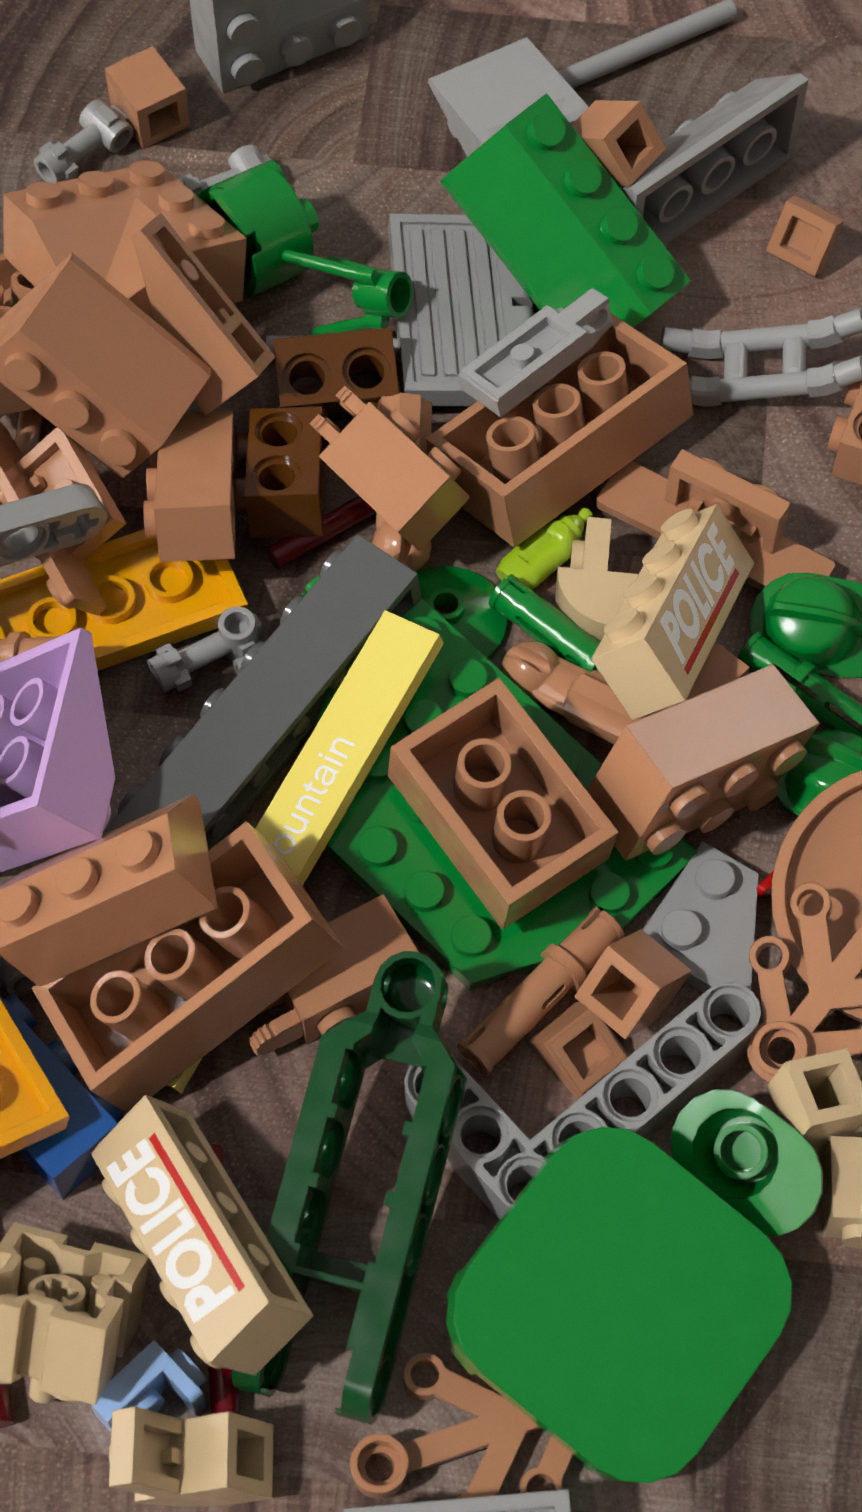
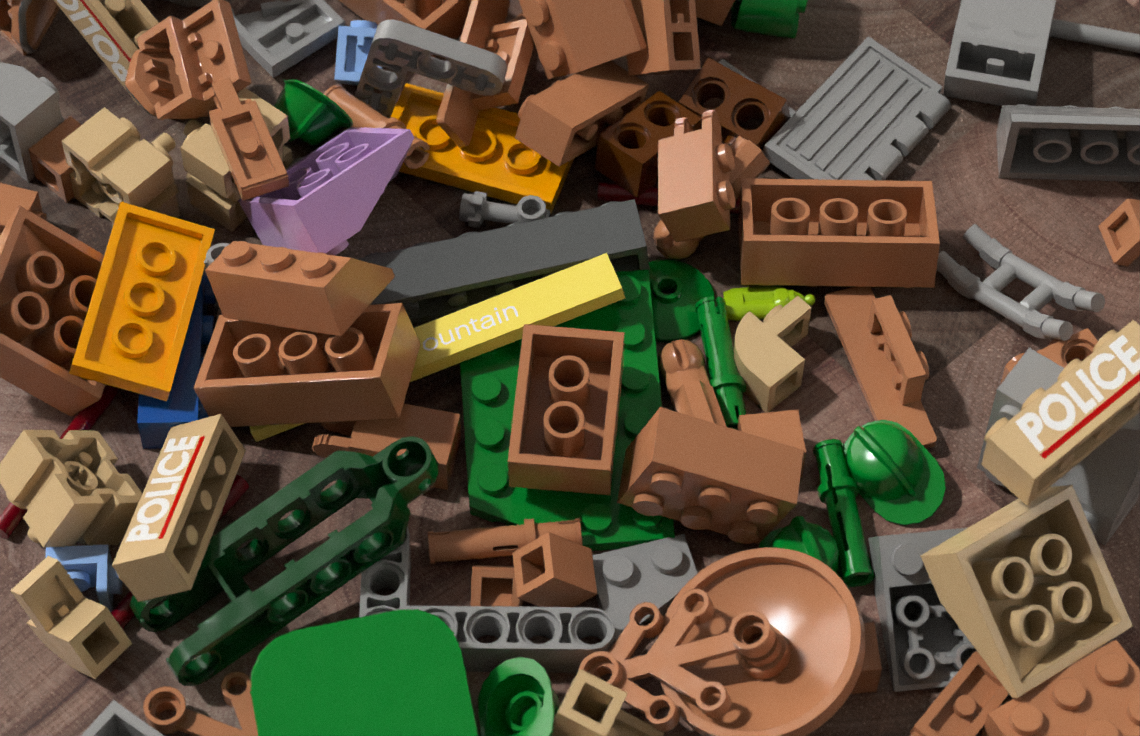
camera: 40 degrees right, 5 degrees down
(376, 291) = (805, 75): green plant -> none
(536, 352) = (854, 172): light grey hinge -> none
(562, 218) = (955, 112): green slope -> none
(620, 138) = (1028, 79): nougat brick -> none
(673, 611) = (785, 380): tan brick -> none

